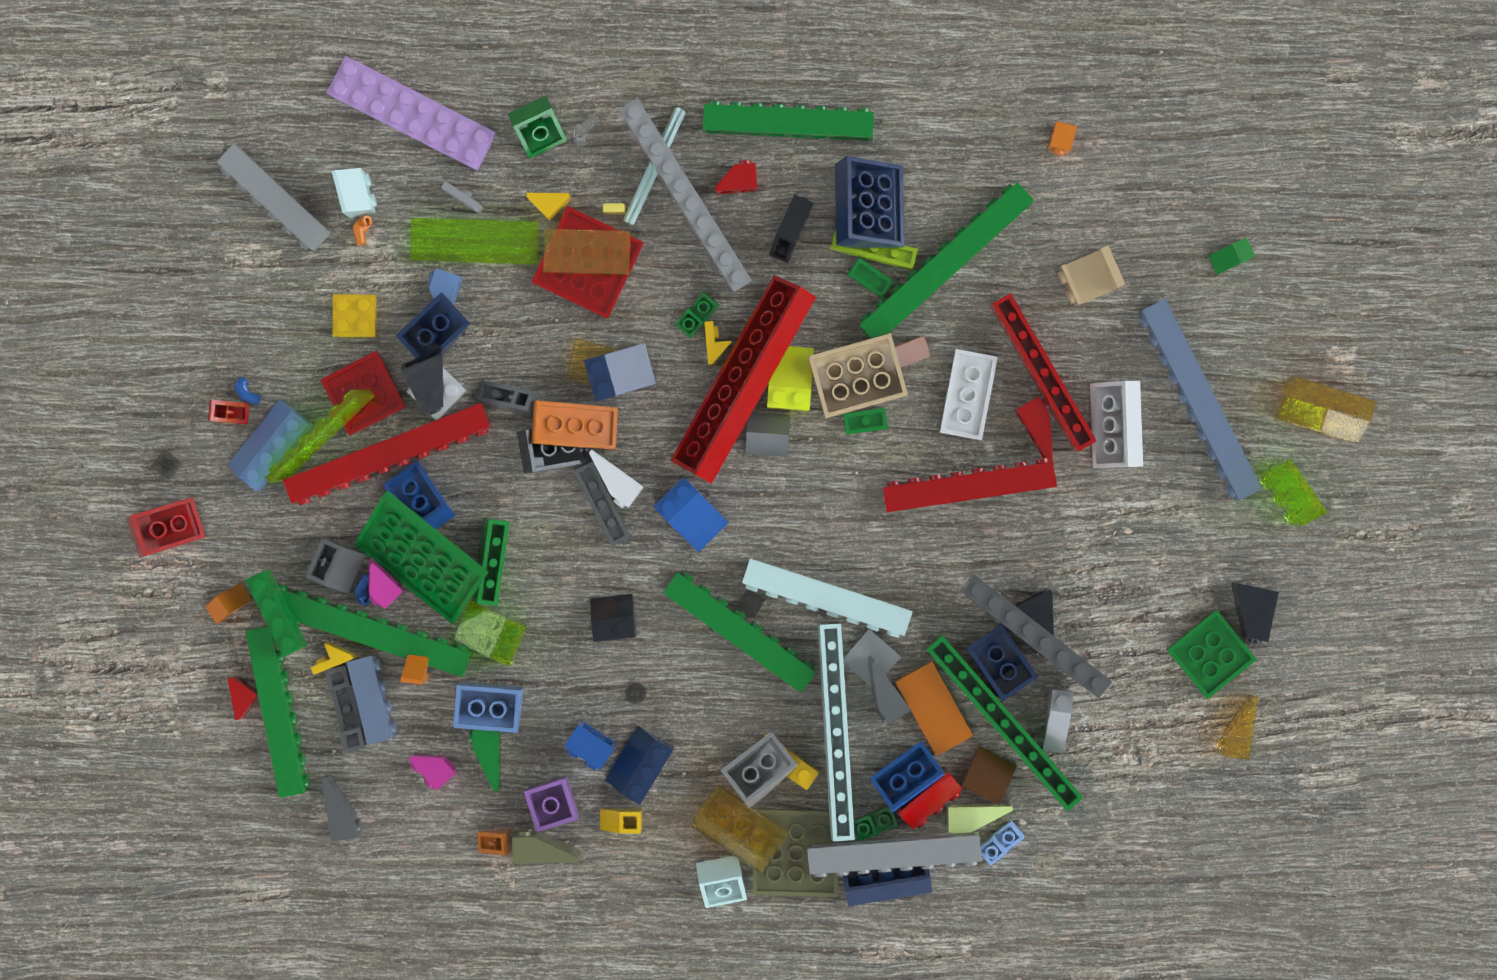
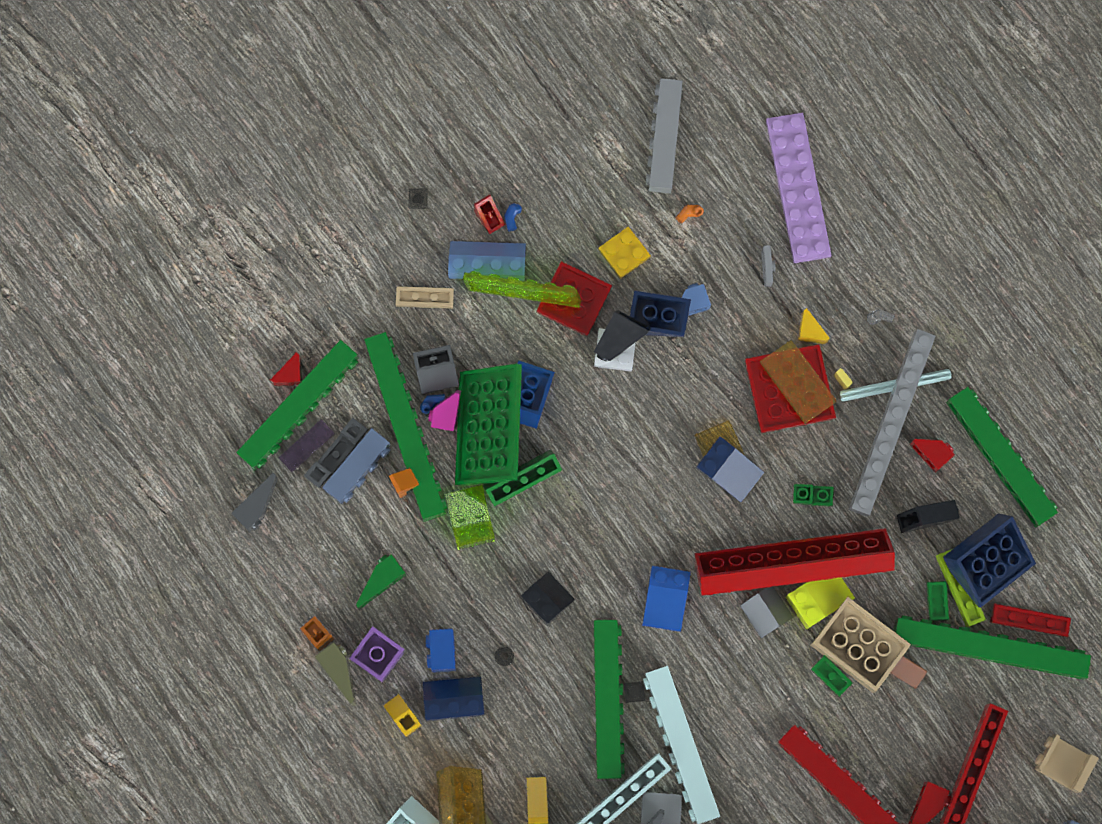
camera: 45 degrees right, 10 degrees down
(165, 527) = (372, 230): red slope -> none
(228, 603) = (350, 313): orange slope -> none
(262, 526) = (424, 297): none -> tan plate
(276, 612) = (372, 351): green brick -> none
(320, 729) = (306, 445): none -> clear purple plate
(337, 656) = (369, 419): yellow slope -> none
(354, 192) = (713, 188): light aqua slope -> none
(388, 453) = (544, 347): red brick -> none
(434, 768) = (339, 550): dark pink slope -> none
(474, 241) = (742, 297): clear neon green plate -> none
(488, 707) = (414, 555): medium blue slope -> none
(508, 398) = (650, 406): dark grey slope -> none
(537, 127) = (858, 282): green slope -> none
(545, 457) = (639, 462): black slope -> none
(574, 425) = (667, 465): orange tile -> none
(602, 503) = (624, 528): dark grey plate -> none
(619, 484) = (648, 532): white slope -> none
(714, 349) = (799, 527): yellow slope -> none
(759, 769) = (516, 790): light grey slope -> none
(947, 209) = (1030, 620): none -> red tile
(968, 394) = (909, 738): white plate -> none

